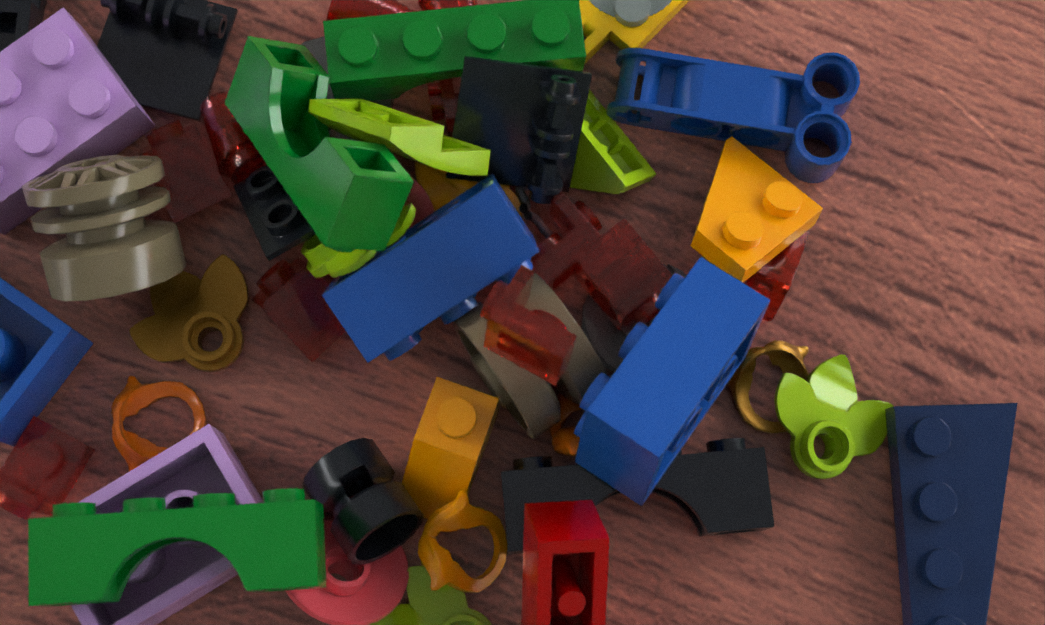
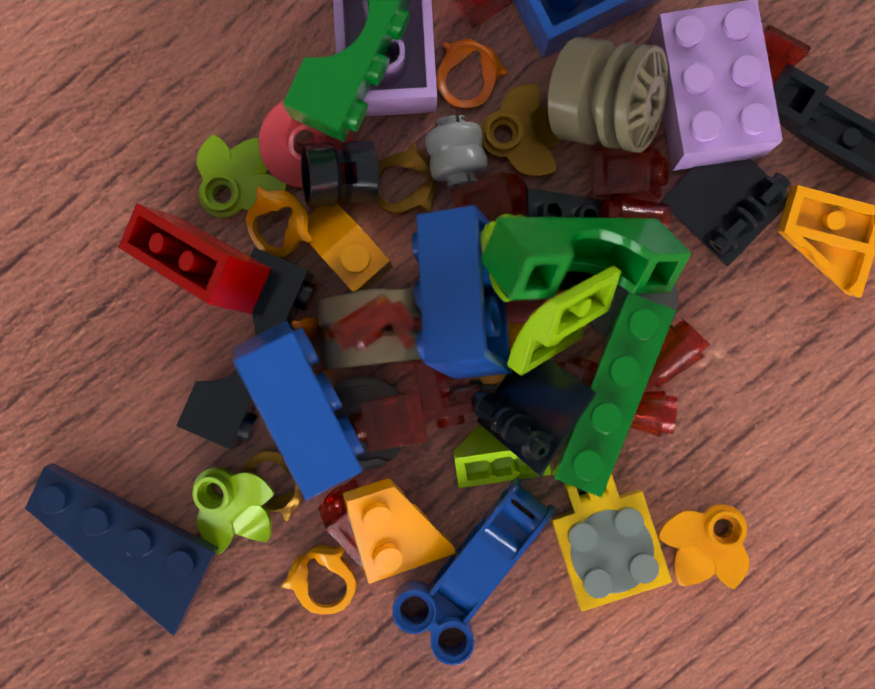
camera: 120 degrees right, 10 degrees up
(262, 378) = (456, 151): none -> light grey piece
(332, 391) = (419, 198): none -> pearl gold piece
(821, 267) = (332, 559): none -> light orange piece

